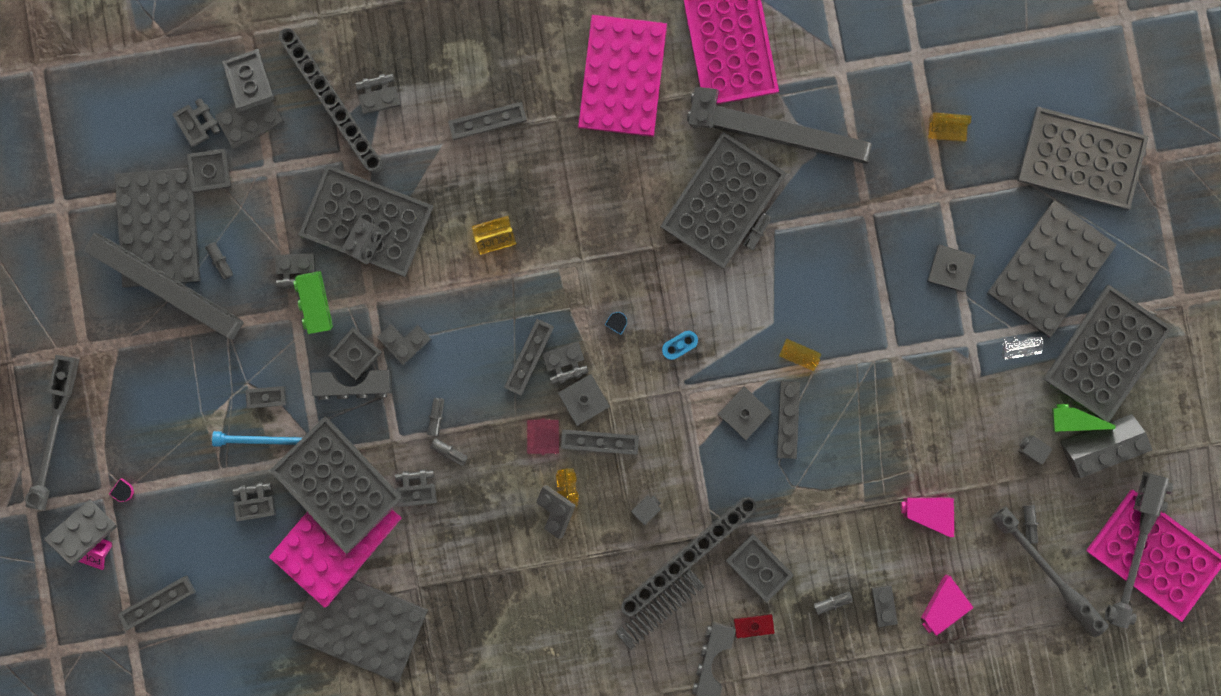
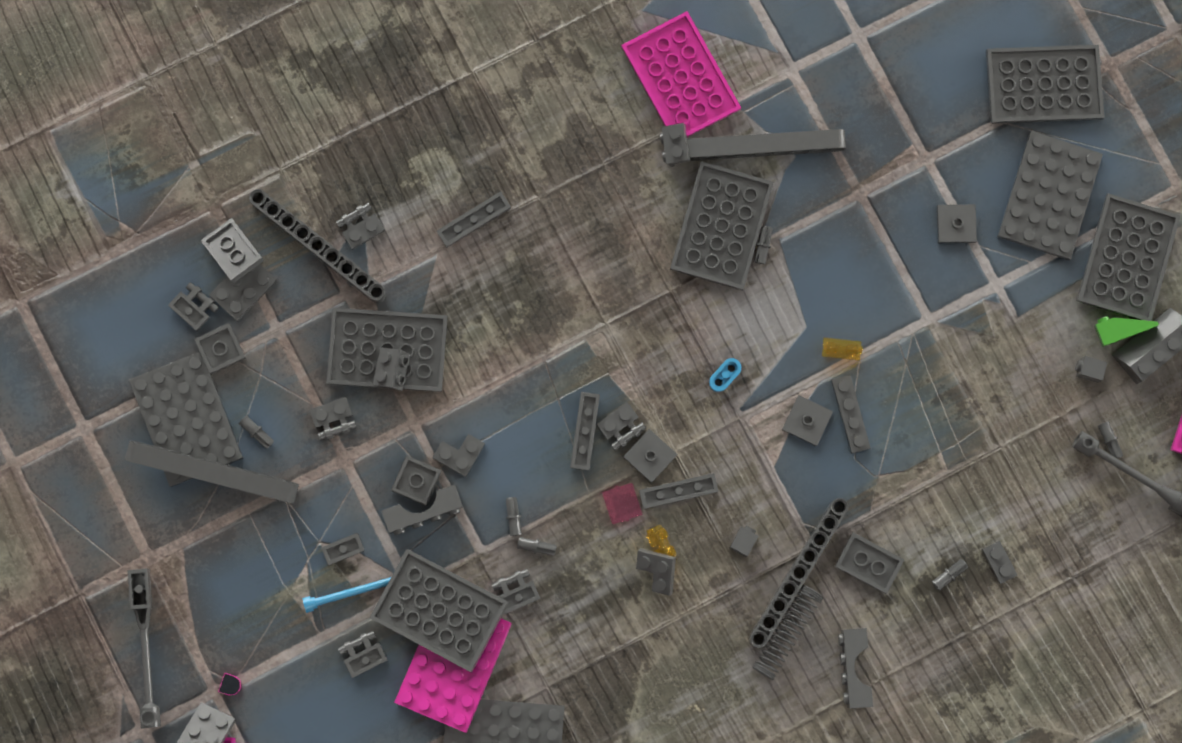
camera: 30 degrees left, 5 degrees down
(313, 302) = (361, 443): bright green brick -> none
(493, 235) = (514, 325): clear yellow panel -> none
(617, 322) = (658, 372): black tile -> none
(622, 75) = (588, 138): dark pink plate -> none
(754, 626) = (882, 620): dark red plate -> none
(931, 512) = (1014, 460): dark pink slope -> none
(945, 606) = (1056, 543): dark pink slope -> none
(948, 126) = (910, 92): clear yellow panel -> none
(1022, 348) = (1048, 277): clear plate -> none

